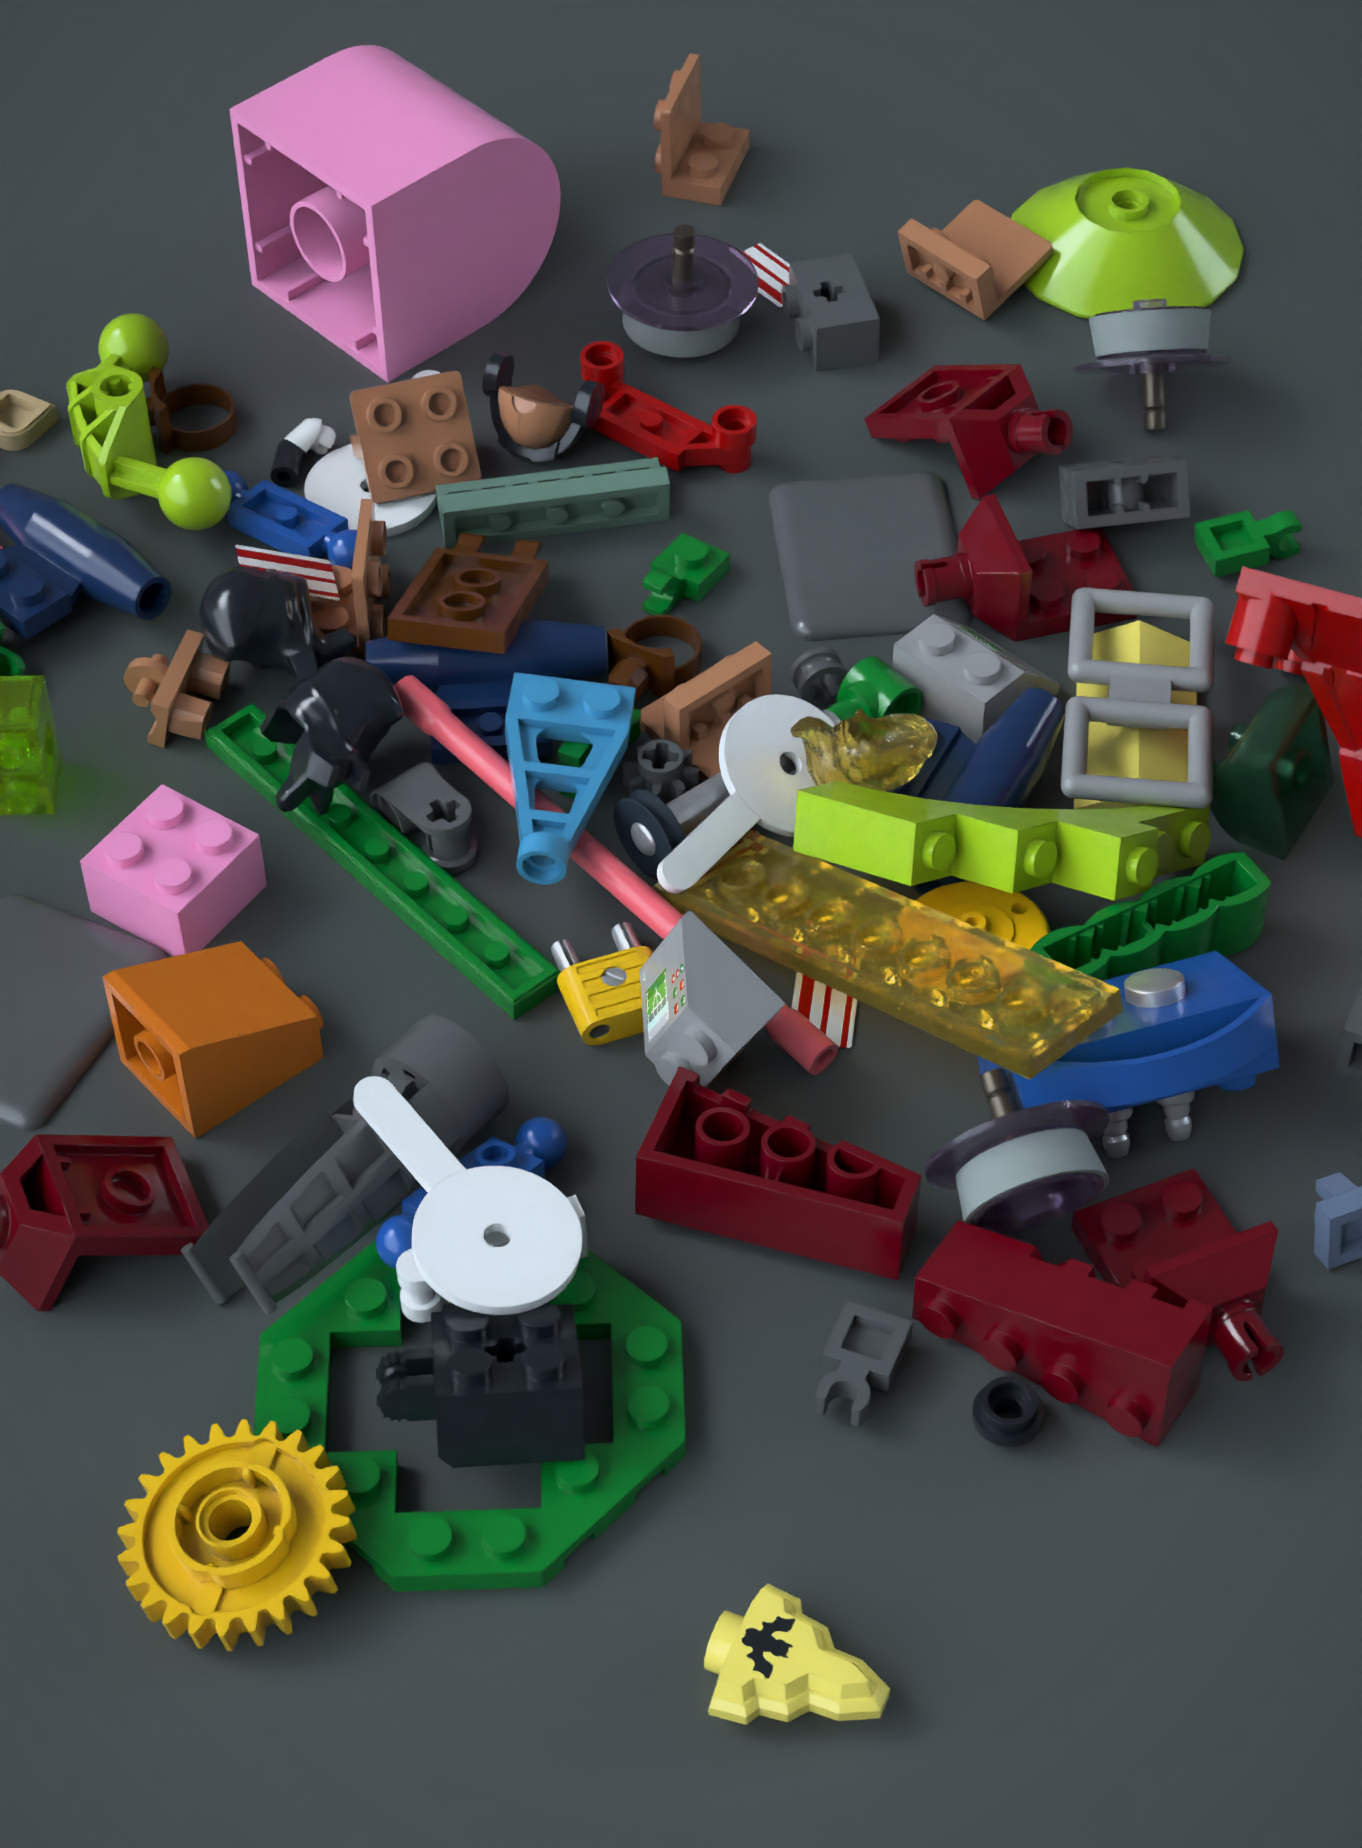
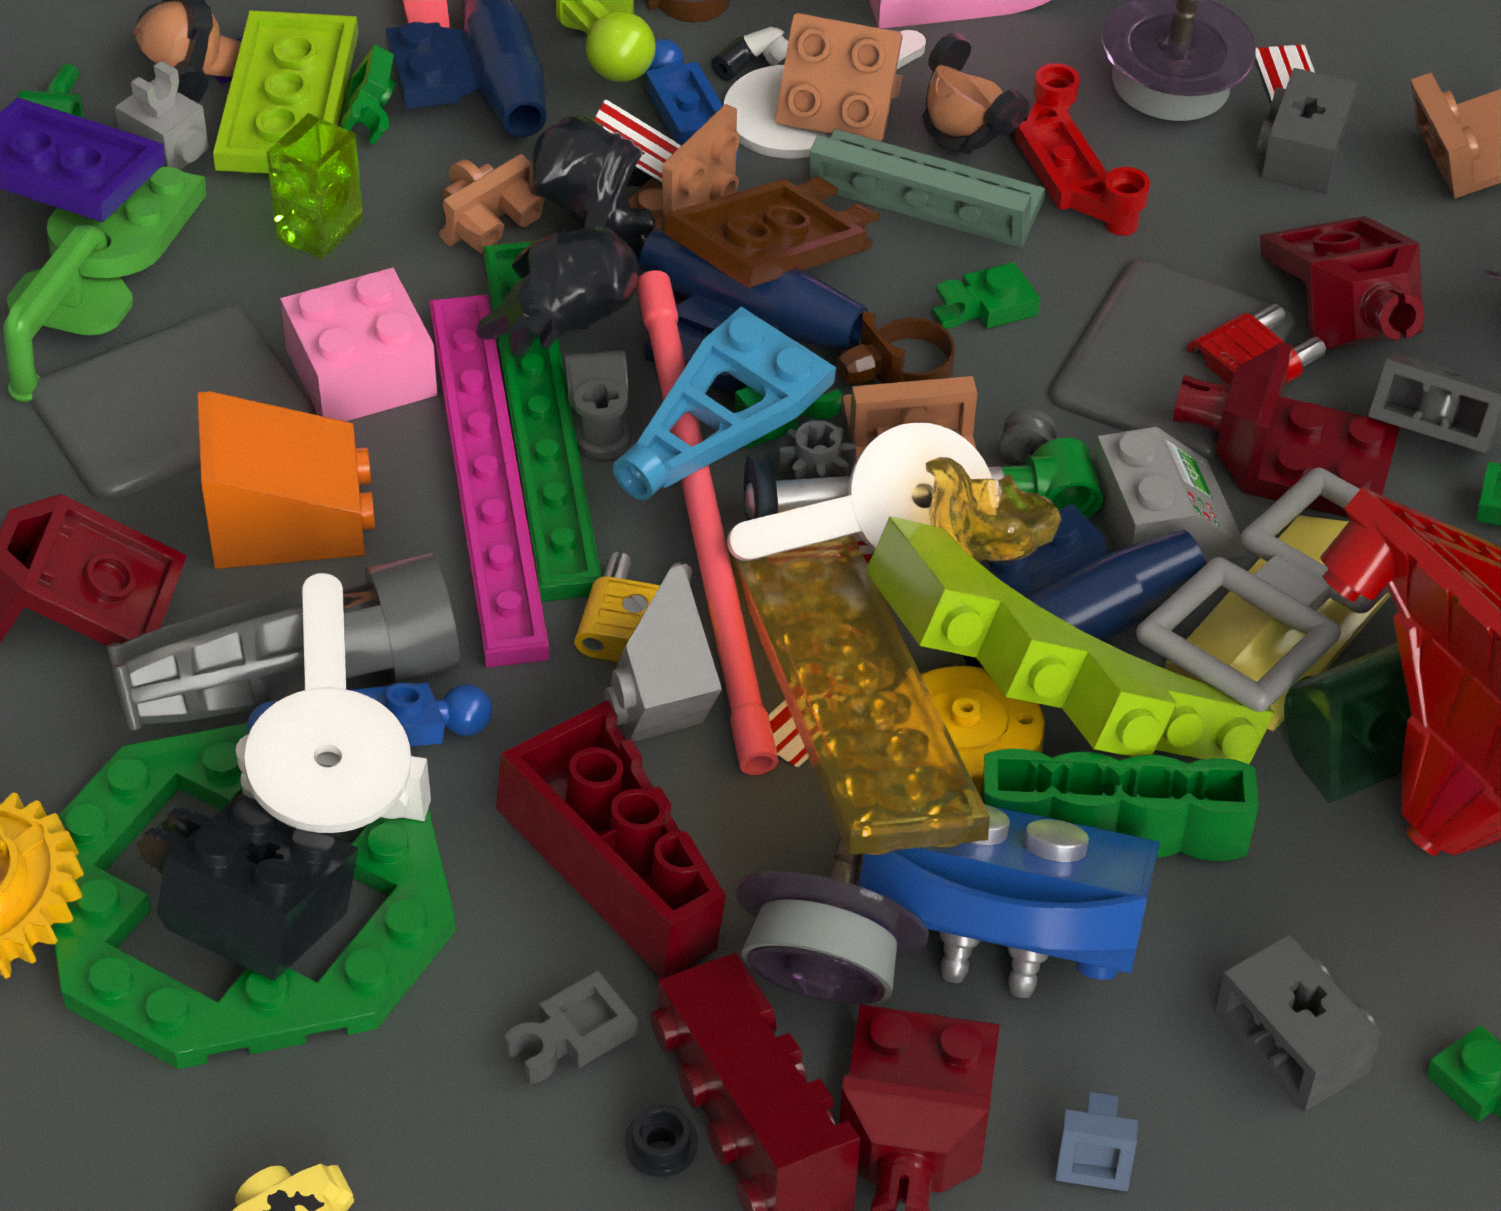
camera: 30 degrees right, 0 degrees up
(386, 936) = (488, 486): none -> dark pink tile
(931, 520) = (1247, 338): none -> red piece

